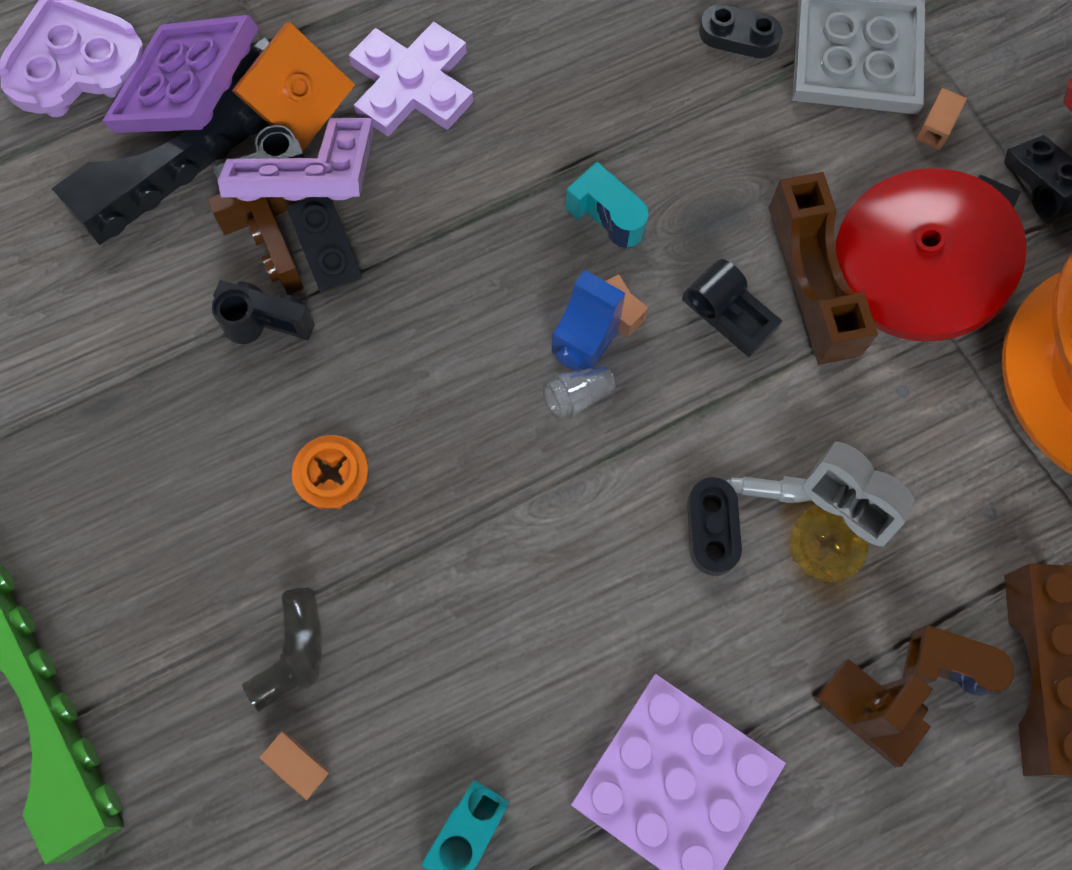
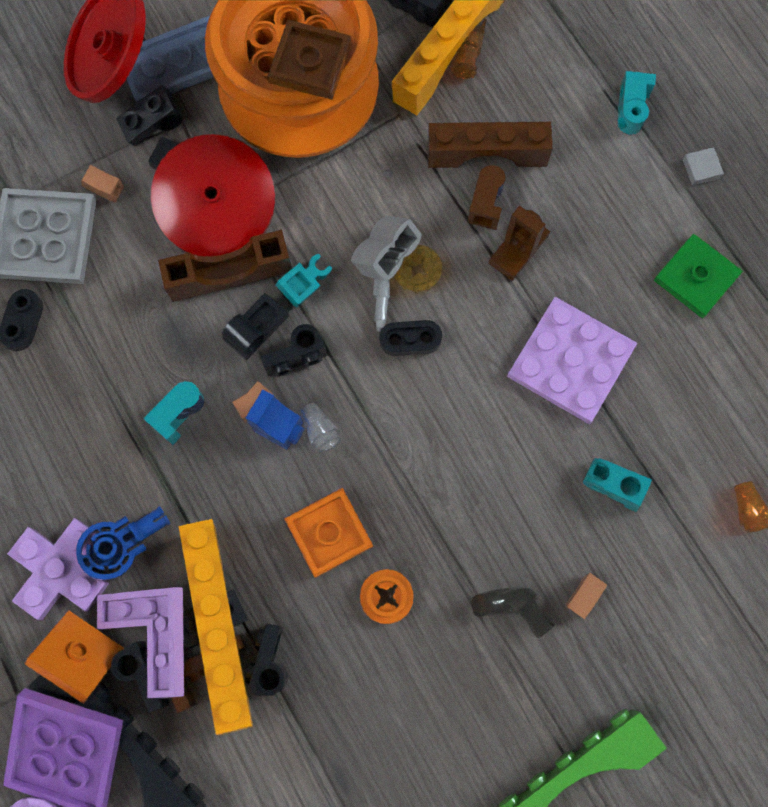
camera: 90 degrees left, 5 degrees up
(247, 248) = (215, 628): none -> light orange arch
(427, 398) = (328, 532): none -> orange plate
(431, 134) = (116, 544): none -> blue pin
(678, 342) = (283, 360): none -> black plate
(799, 371) = (301, 282): none -> teal plate

